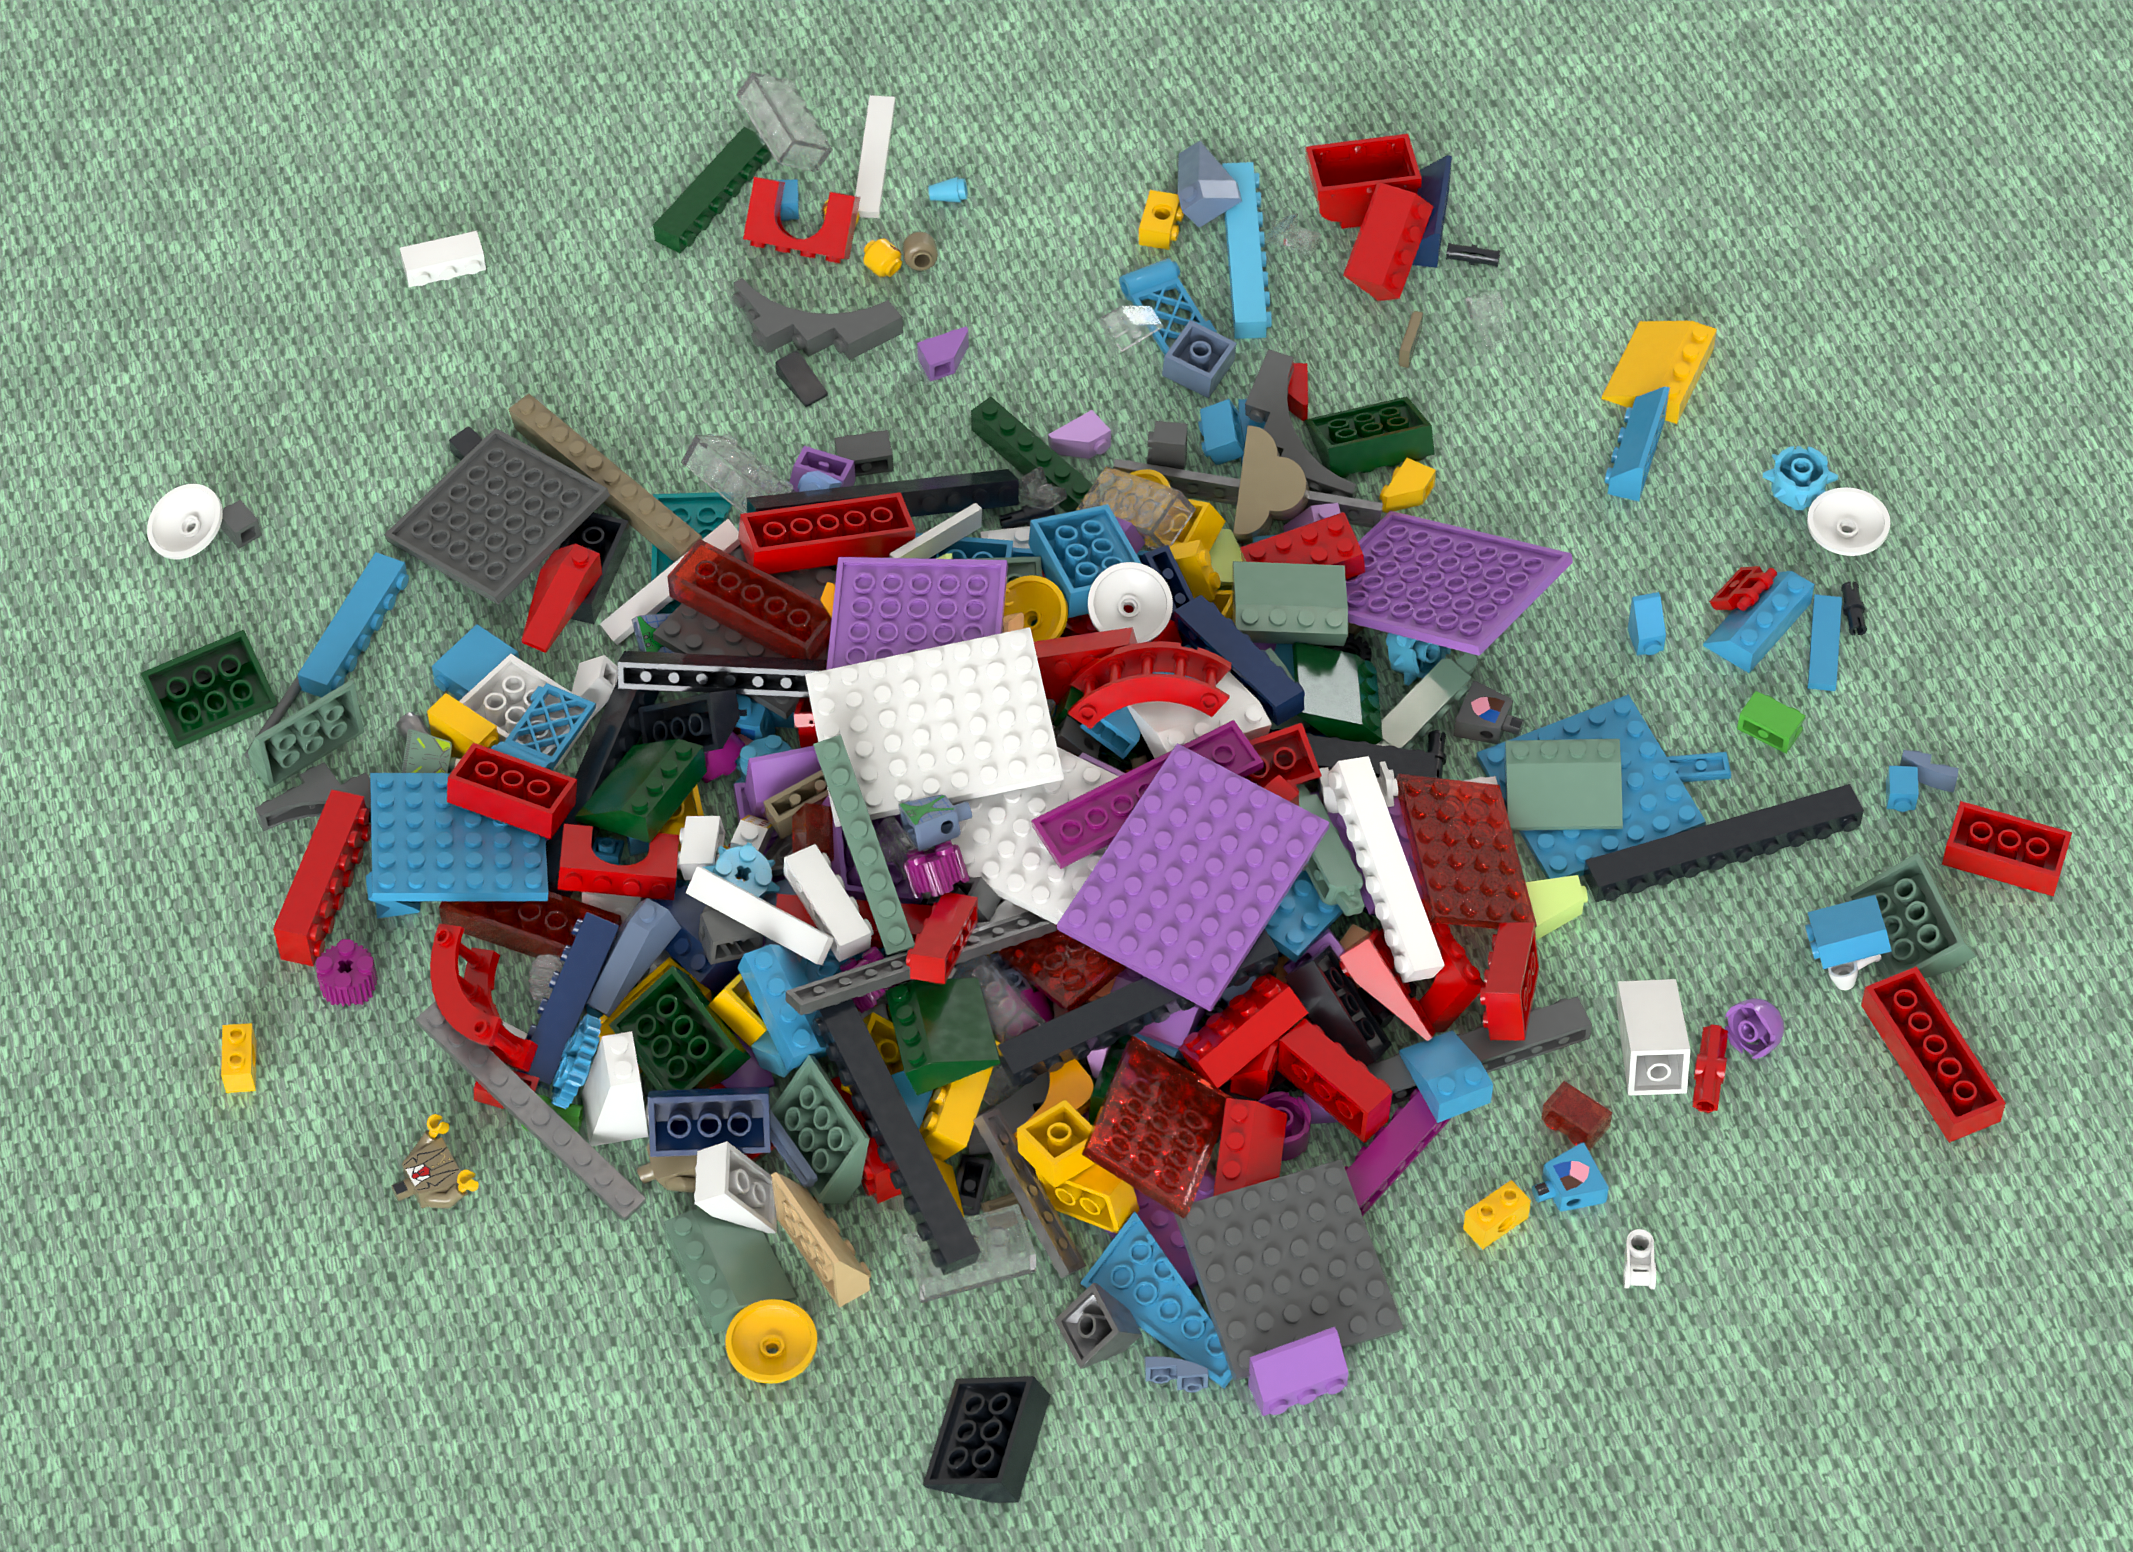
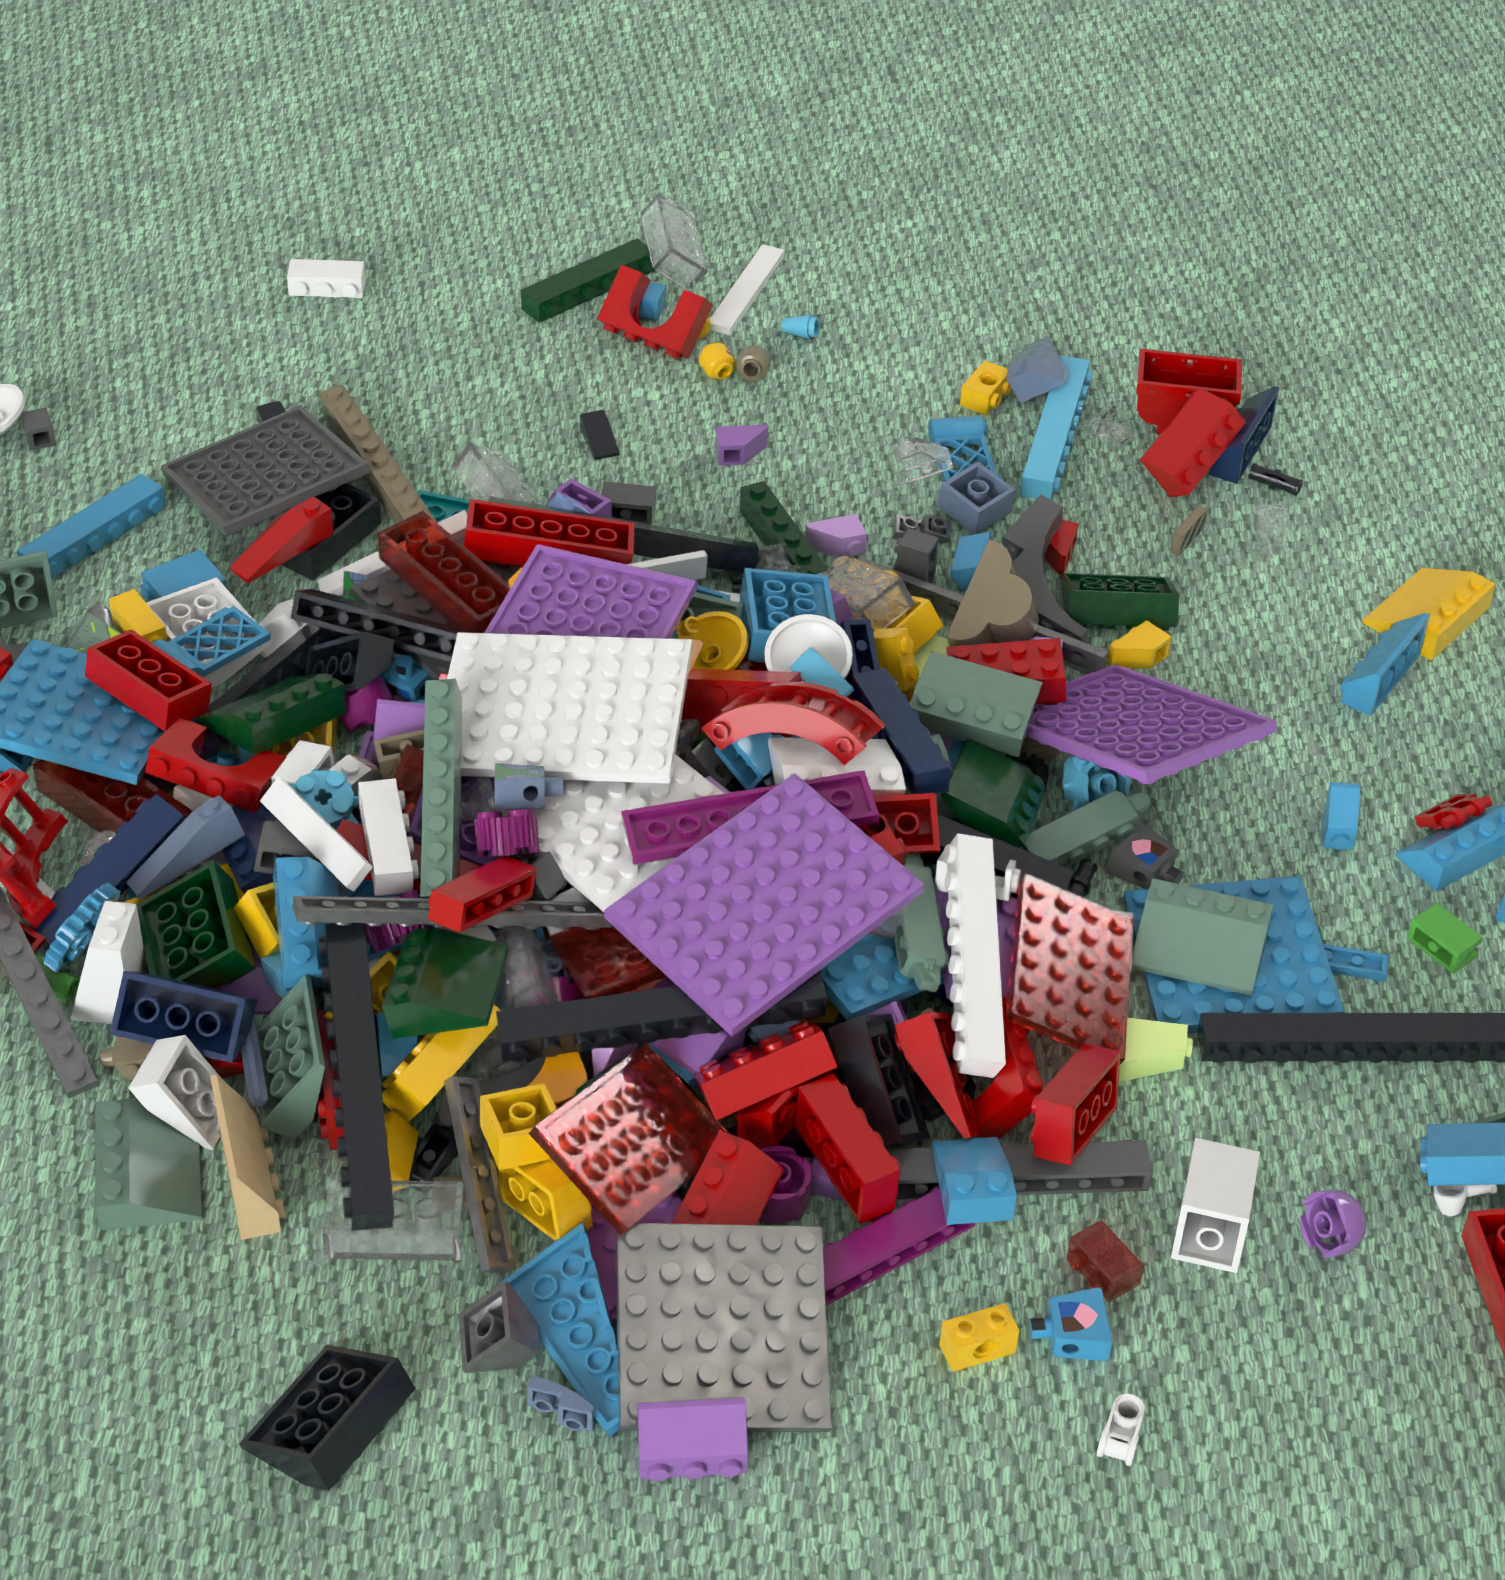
camera: 15 degrees right, 10 degrees down
(768, 1326) = (145, 1236): yellow dish -> none
(812, 332) = (626, 402): dark grey arch -> none
(1151, 624) = (818, 671): none -> medium azure slope
(1161, 405) = (930, 525): none -> flat silver slope
(1710, 1068) = (1270, 1253): red piece -> none

